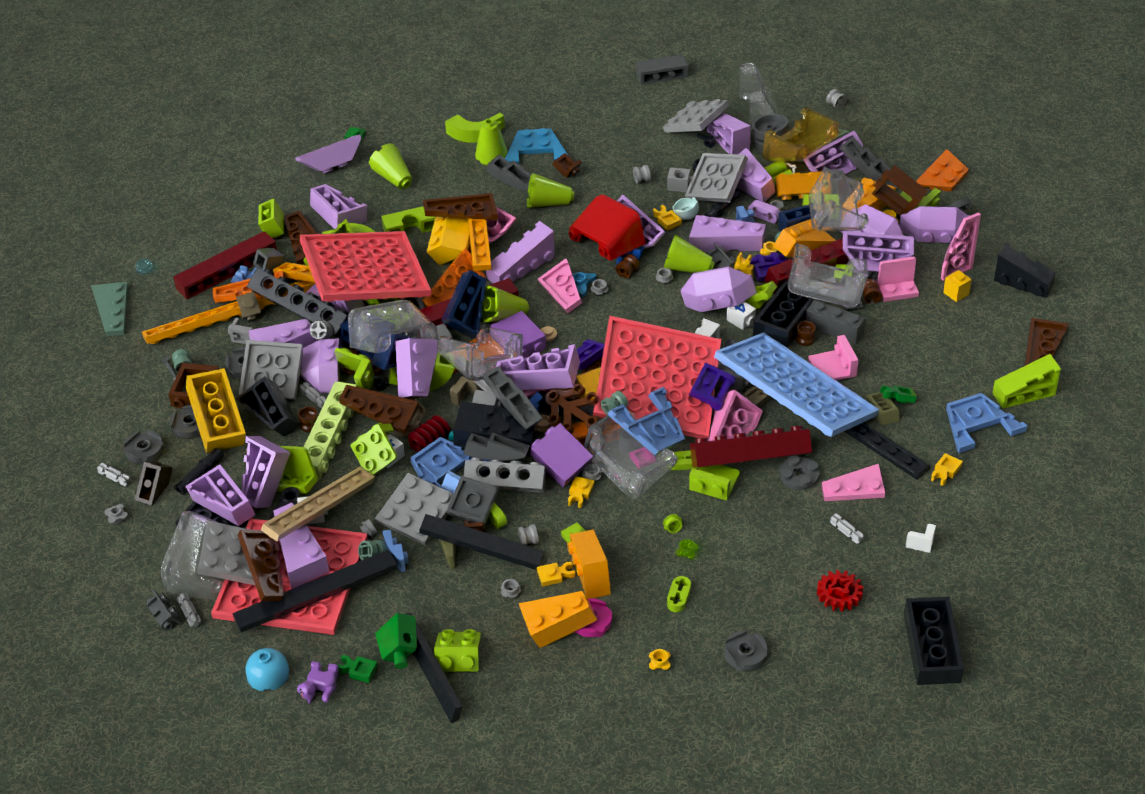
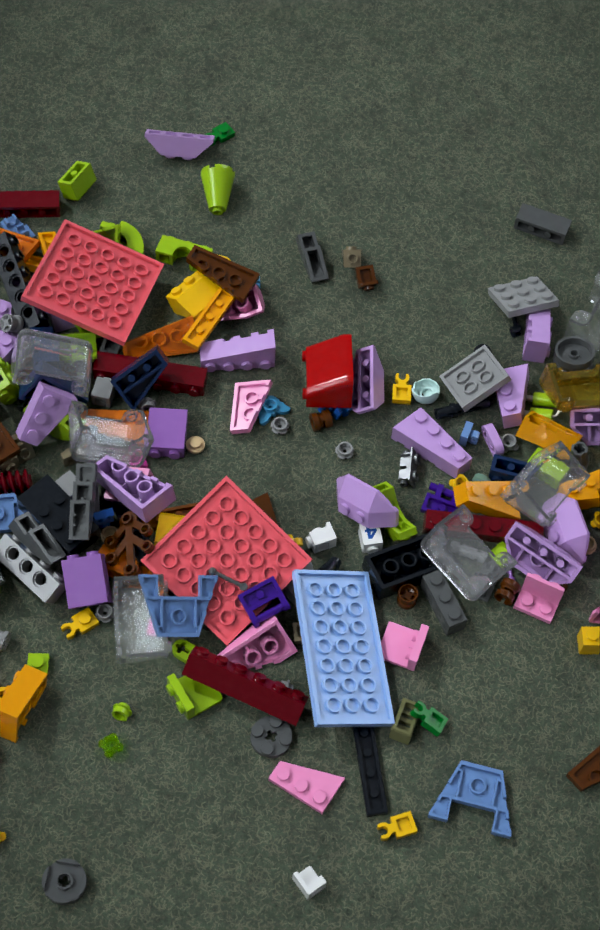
camera: 30 degrees right, 15 degrees up
(268, 258) = (40, 221): dark grey brick -> none
(296, 226) = (92, 209): reddish brown wing -> none
(335, 207) = (137, 202): lavender wedge -> none
(466, 130) = (322, 192): lime arch -> none
(490, 142) = (318, 215): lime cone -> none
(501, 304) = (174, 394): lime cone -> none
(534, 142) = (362, 233): dark azure wing -> none
(544, 157) = (351, 257): none -> dark tan bracket
(547, 192) = (320, 297): lime cone -> none
(589, 352) = (197, 488): dark purple plate -> none
(614, 401) = (154, 566): sand green wheel -> none
(641, 174) = (421, 328): light grey wheel -> none
(674, 592) = (67, 788): lime beam -> none
(678, 179) = (447, 350): light grey brick -> none
(687, 257) = (375, 446): lime cone -> none
(687, 386) = (243, 586): none -> dark grey hinge
(744, 264) = (415, 491): yellow plate -> none
(839, 590) = (199, 885): red gear -> none
(847, 528) = (258, 823): light grey axle -> none
(1028, 383) = (551, 792): lime wedge -> none

